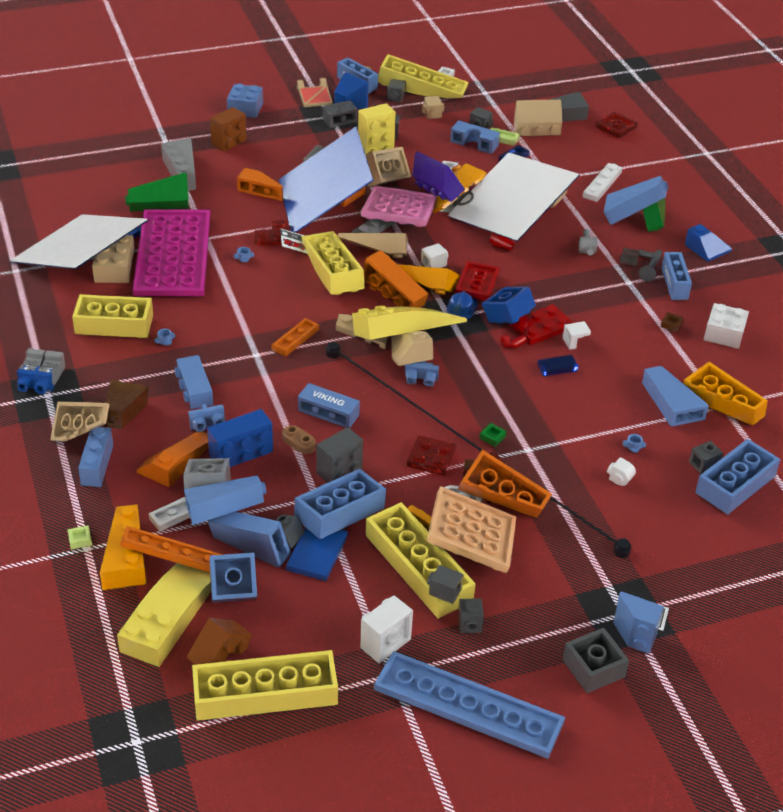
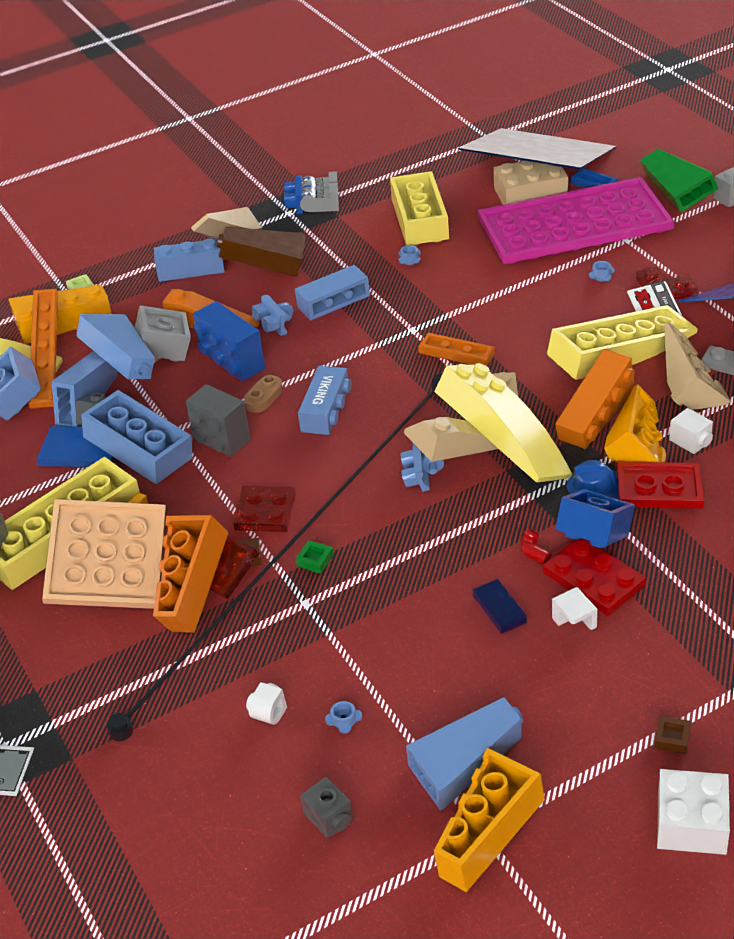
camera: 85 degrees right, 0 degrees up
(737, 476) = (282, 849): medium blue brick -> none

